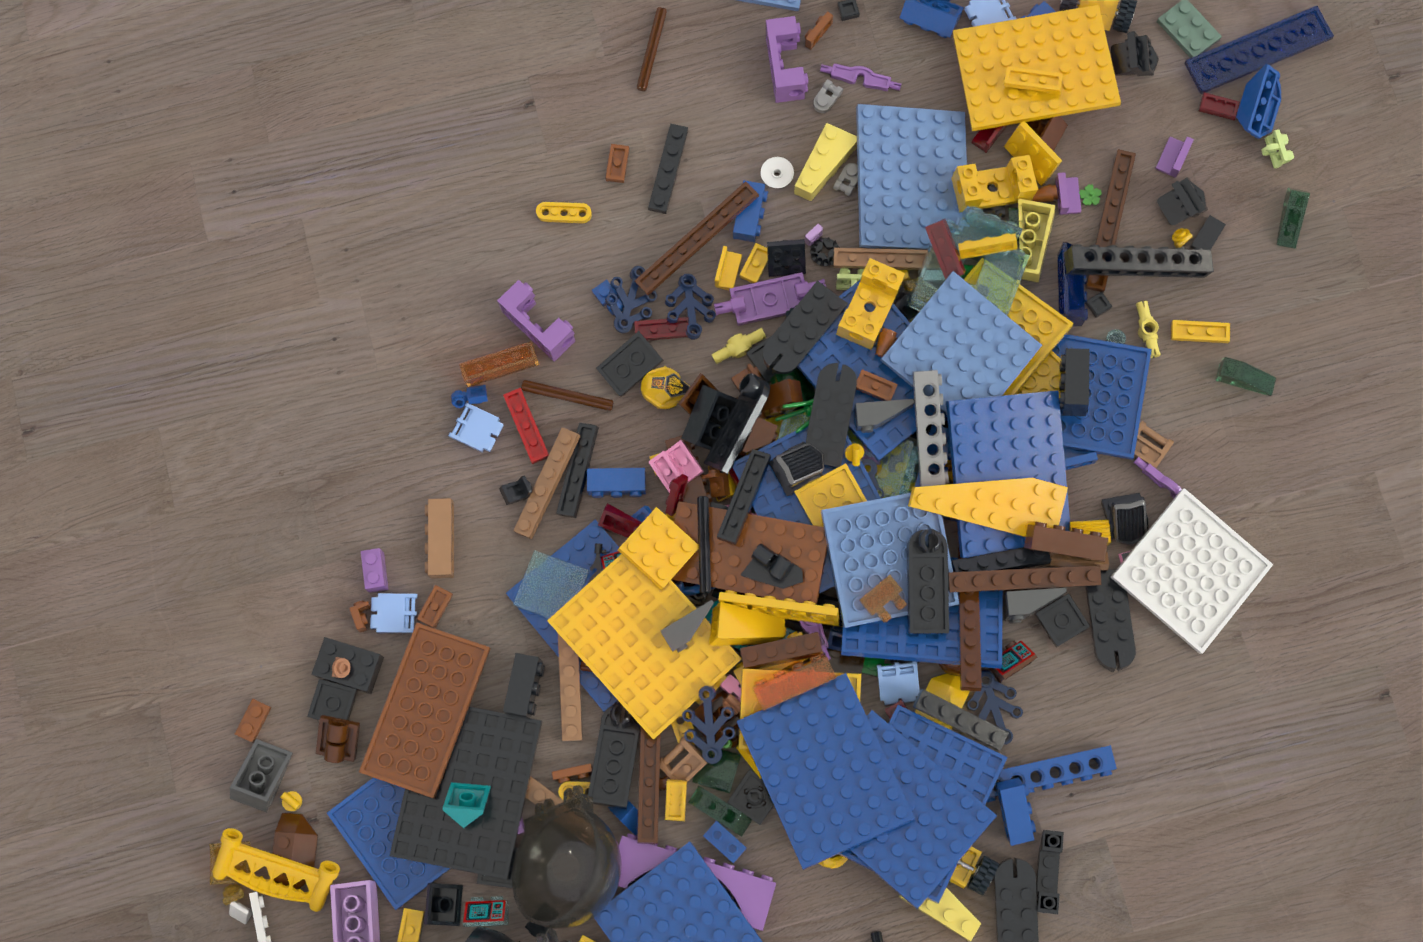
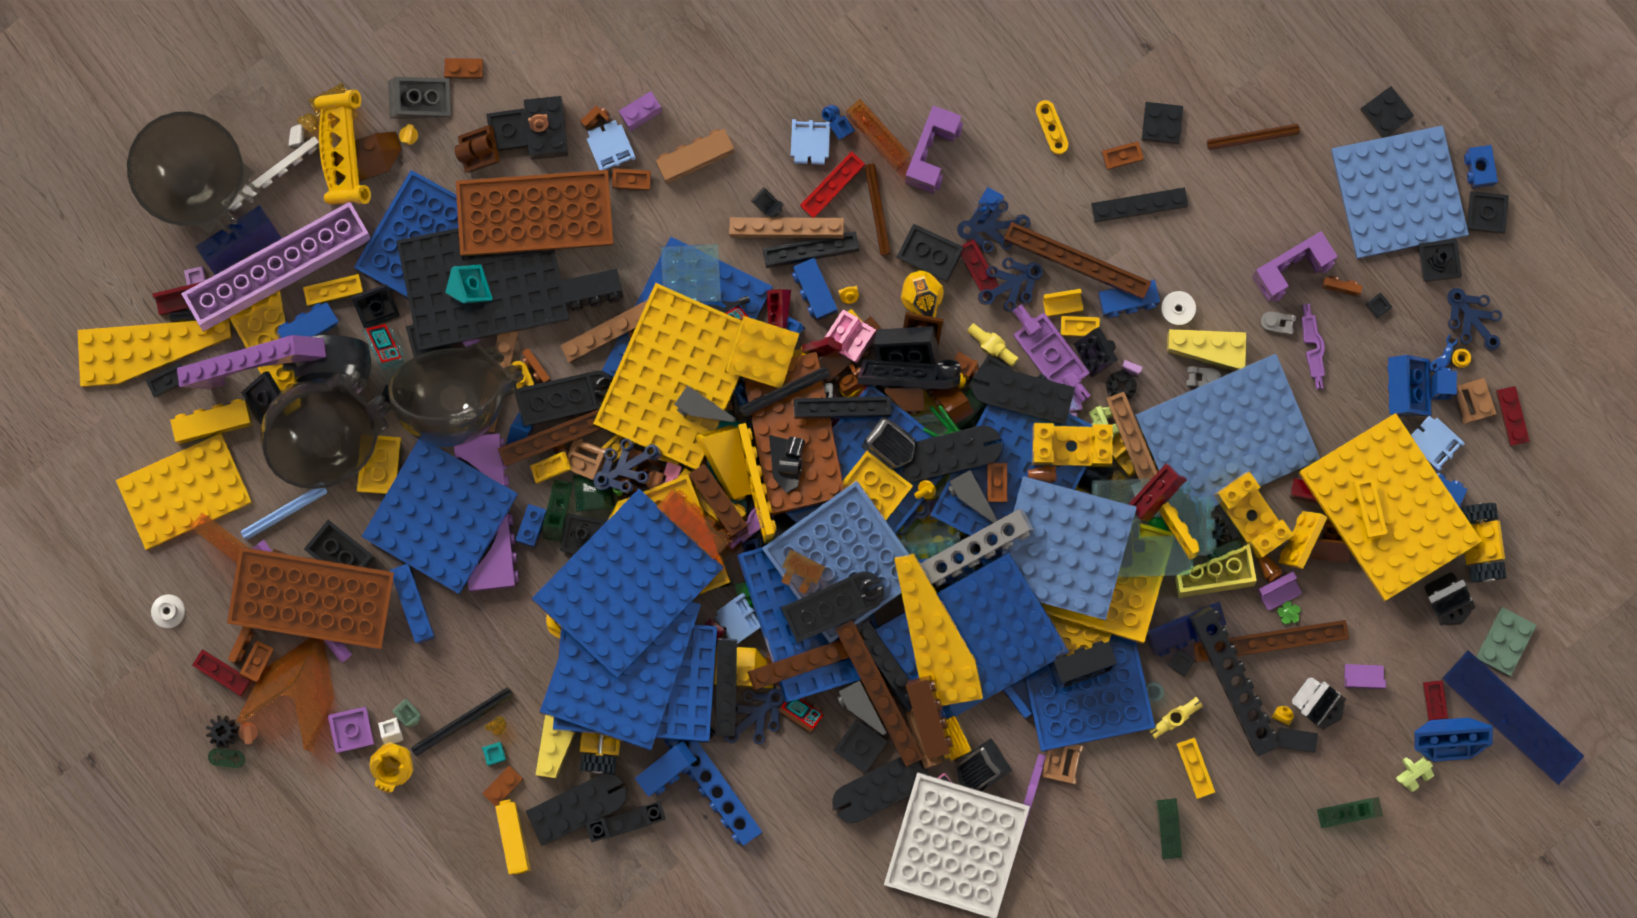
camera: 65 degrees right, 5 degrees up
(603, 119) = (1162, 123): none -> black plate
(635, 454) = (849, 294): none -> yellow plate

